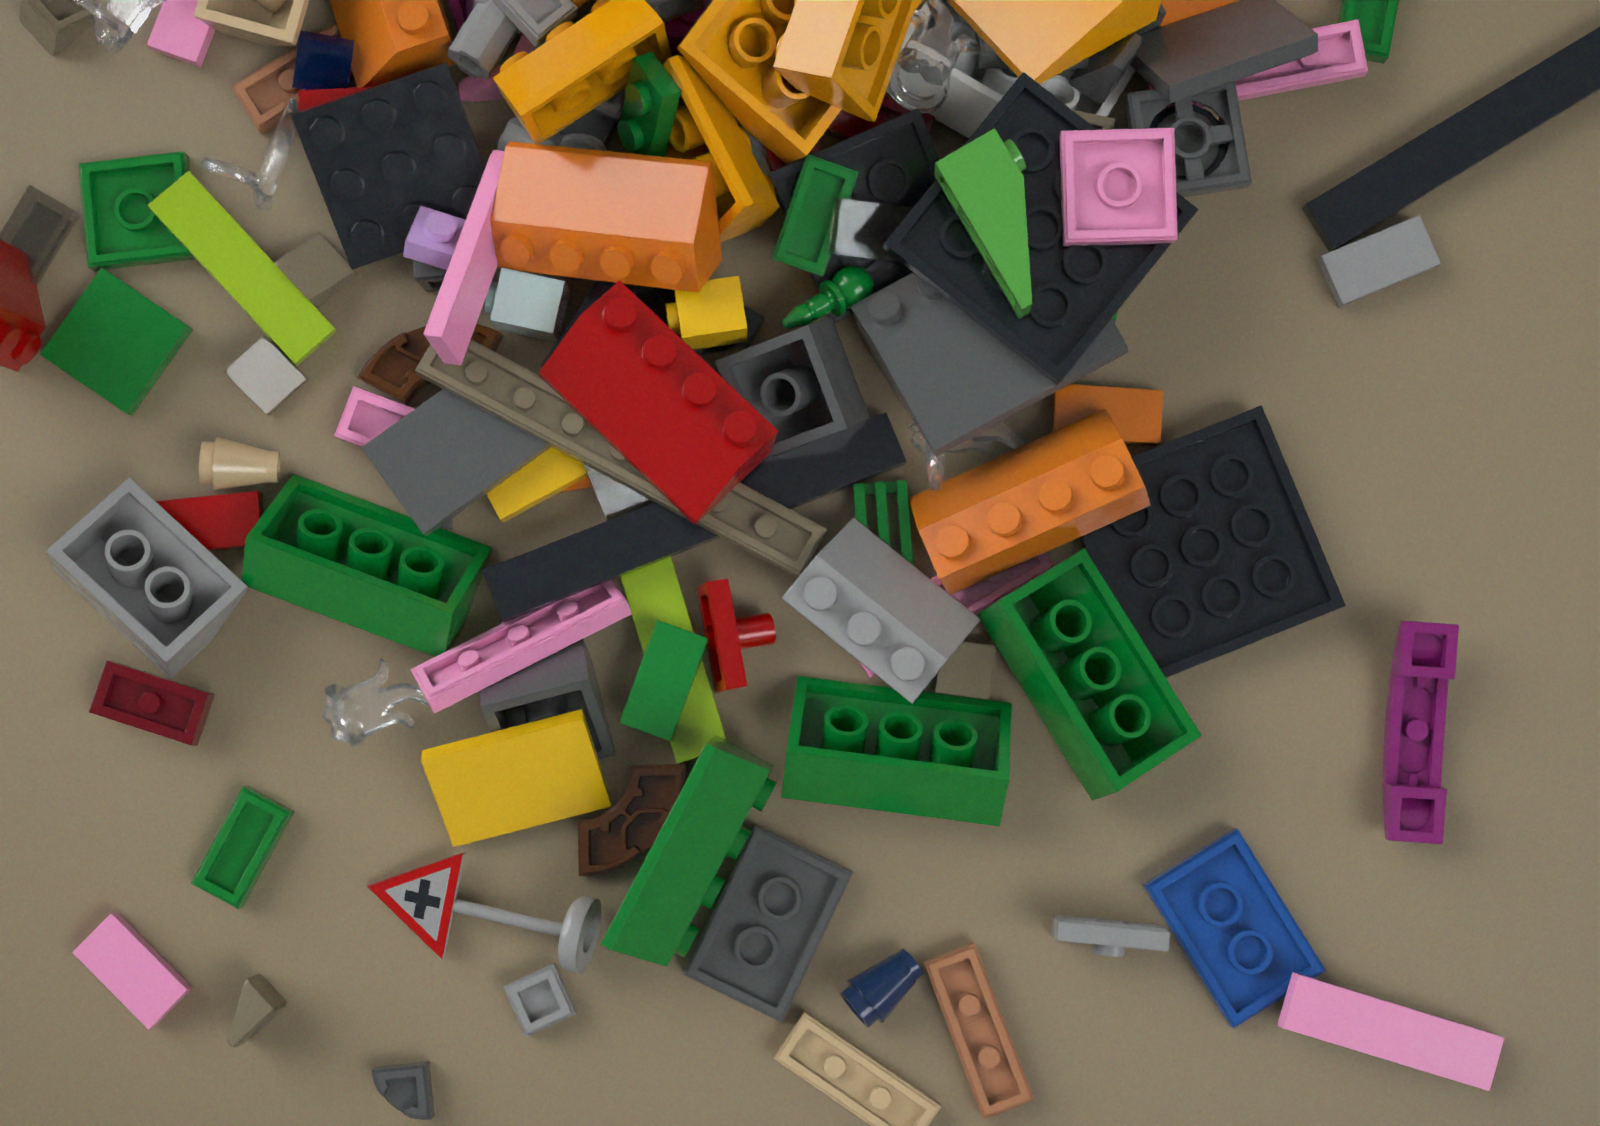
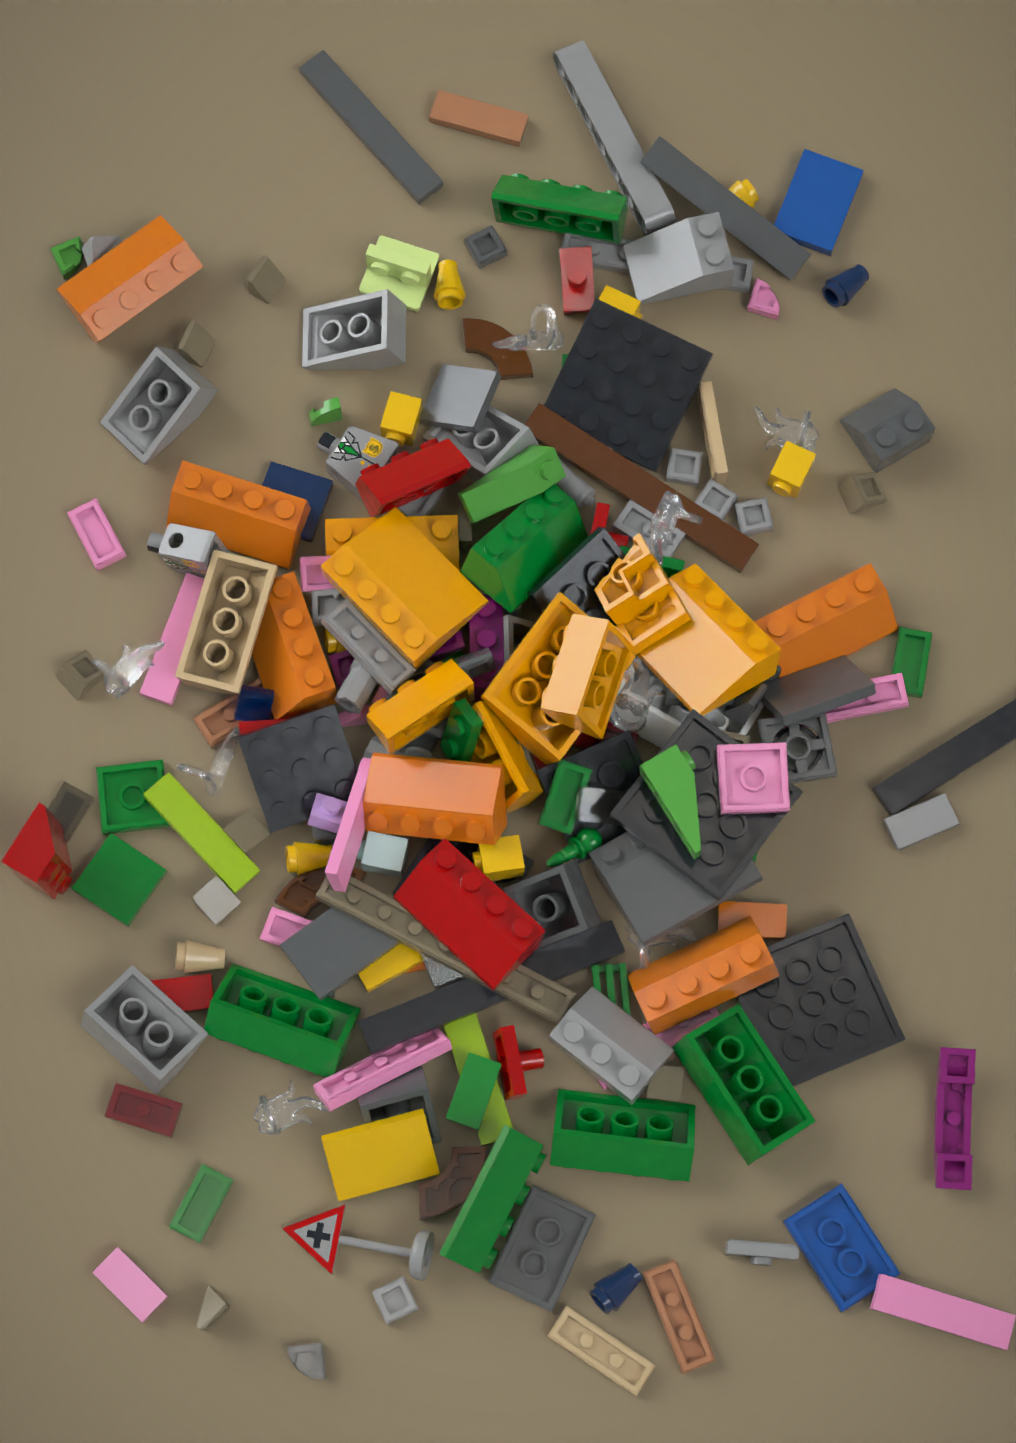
camera: 10 degrees left, 10 degrees down
(403, 308) = (306, 857): none -> yellow cone

